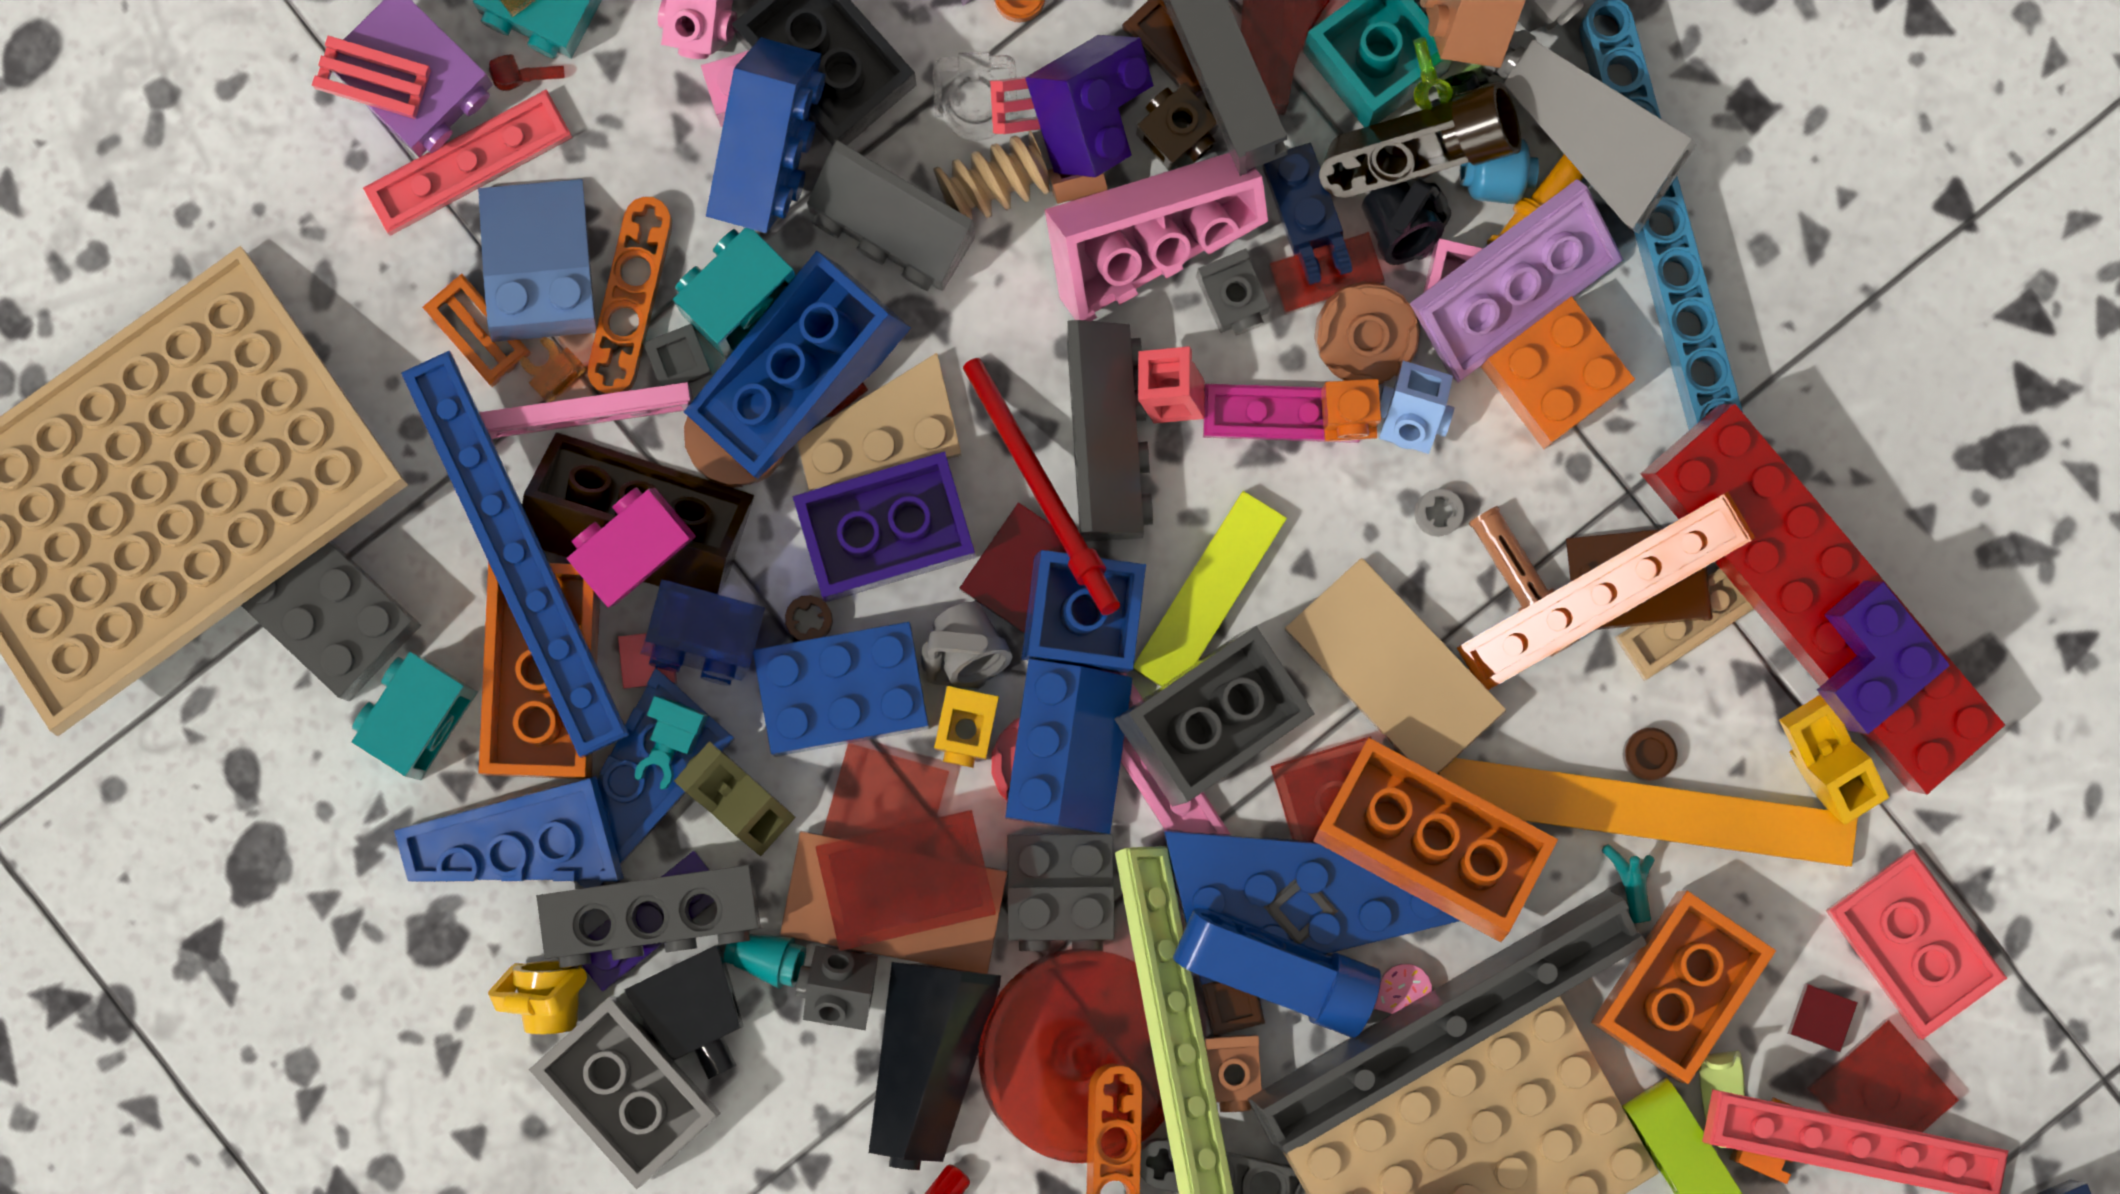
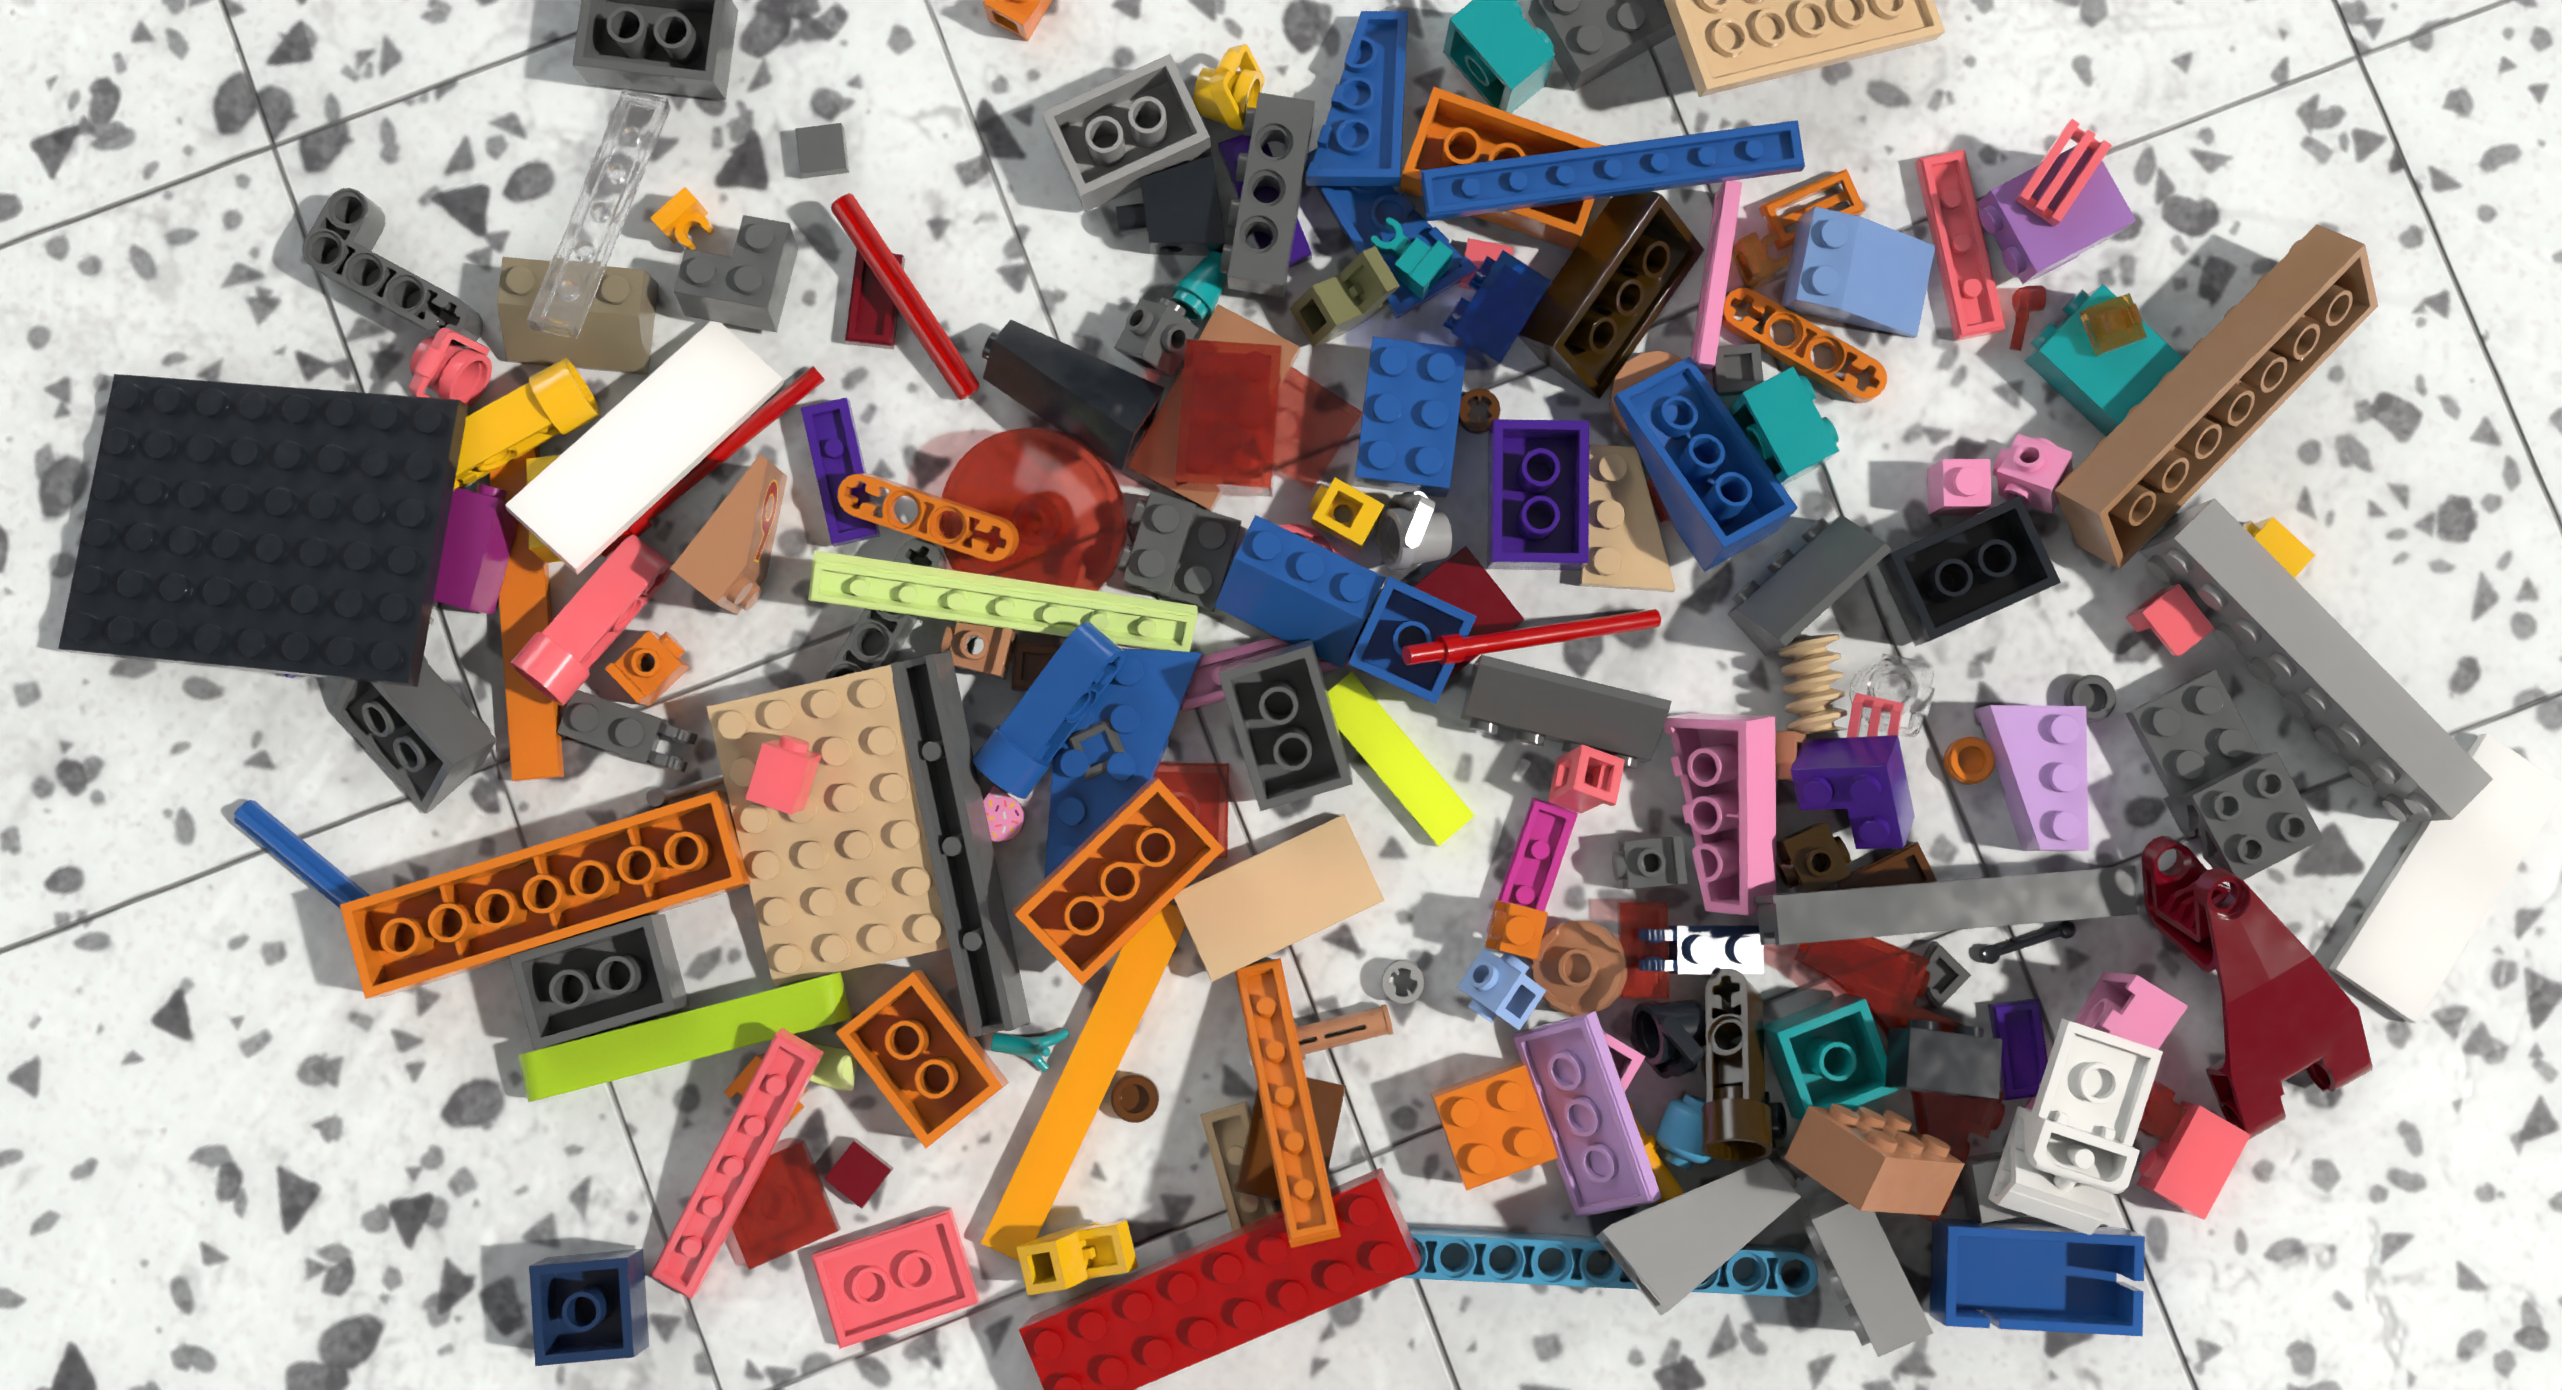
camera: 110 degrees right, 0 degrees up
(630, 545) = (1589, 265): dark pink brick -> none
(765, 135) = (1915, 488): blue brick -> none
(1428, 77) = (1793, 1093): clear neon green hand -> none
(1890, 661) = (1140, 1332): dark purple brick -> none

